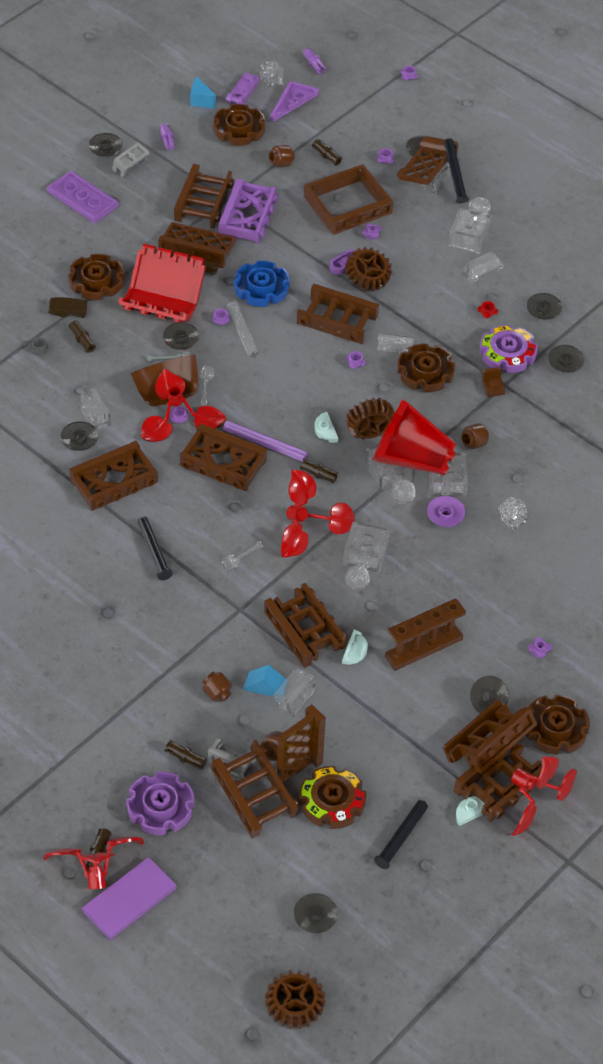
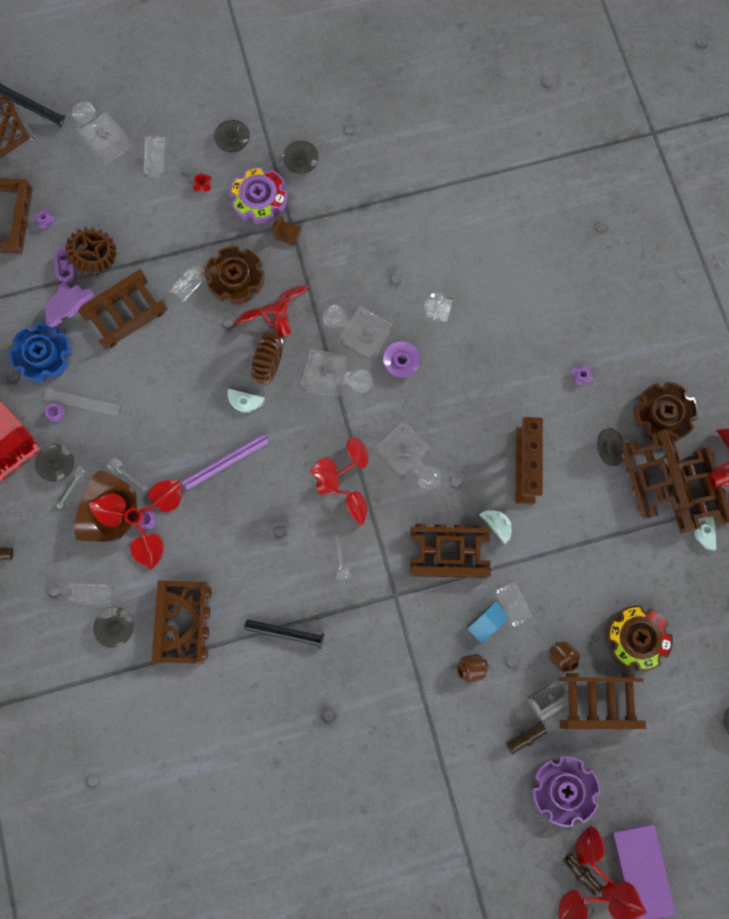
camera: 55 degrees left, 25 degrees up
(224, 473) = (196, 506): reddish brown fence -> none
(302, 745) = (598, 644): reddish brown fence -> none
(312, 275) = (65, 303): none -> medium lavender tile
(319, 470) = (289, 436): dark brown pin -> none
(355, 360) = (182, 322): medium lavender plate -> none
(401, 834) = (701, 602): black axle -> none
(409, 385) = (279, 323): none -> red plant
(414, 443) = (332, 346): red cone -> none
(475, 436) = (336, 284): reddish brown head -> none

